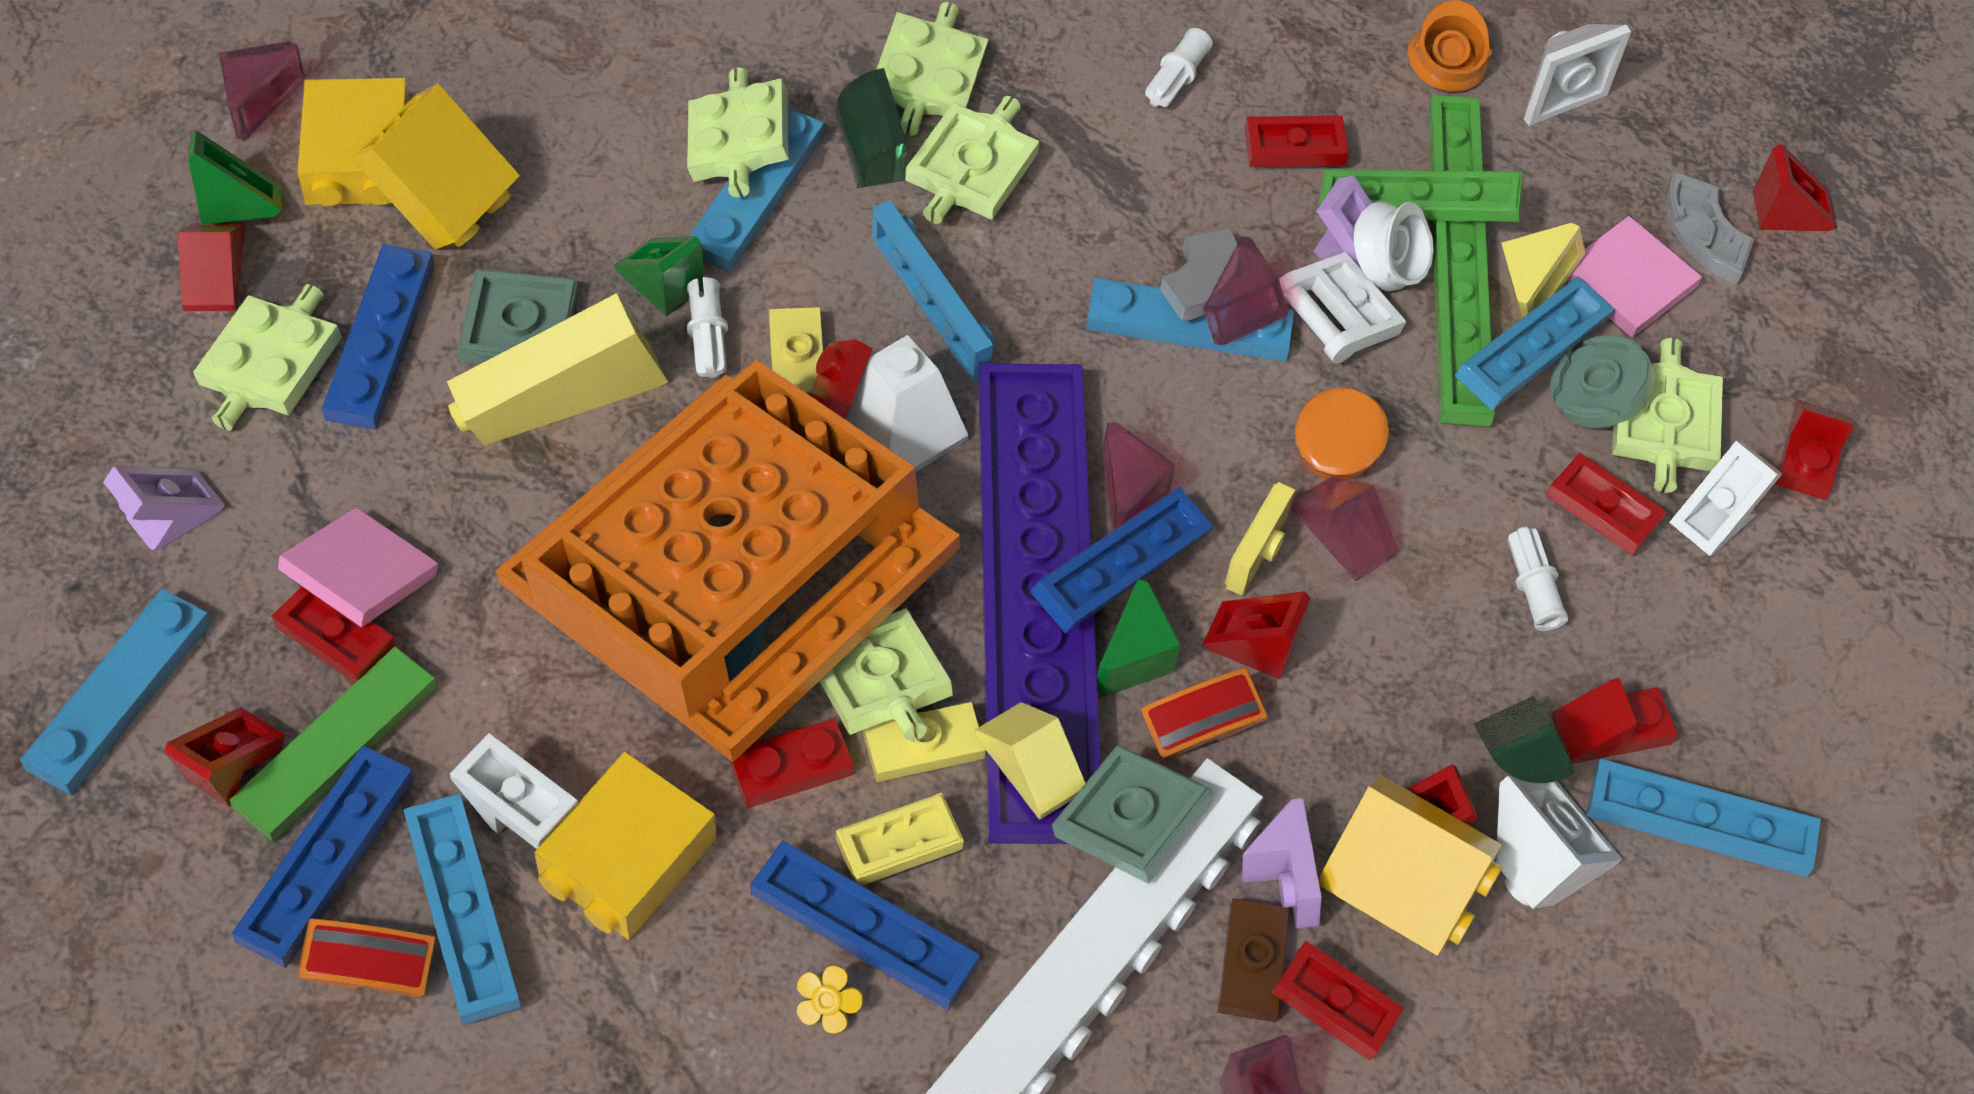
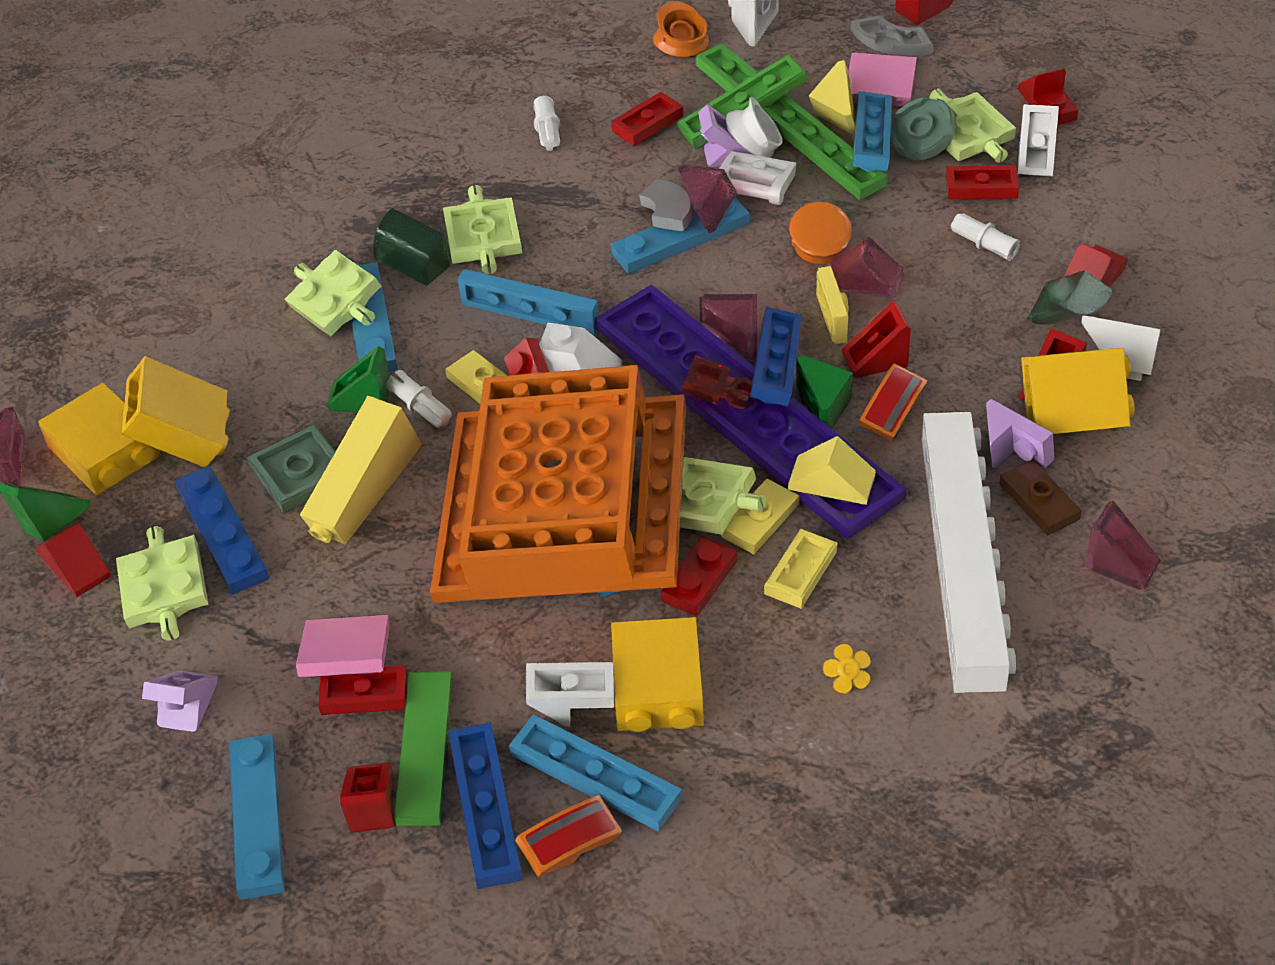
camera: 30 degrees left, 10 degrees down
(865, 925) = (827, 620): blue plate -> none
(930, 65) = (410, 193): yellowish green plate -> none
(1014, 538) = (712, 380): none -> clear red plate
(1132, 813) = (916, 462): sand green tile -> none
(1337, 1000) = (1103, 482): red plate -> none
(1703, 817) = (1179, 285): dark azure plate -> none

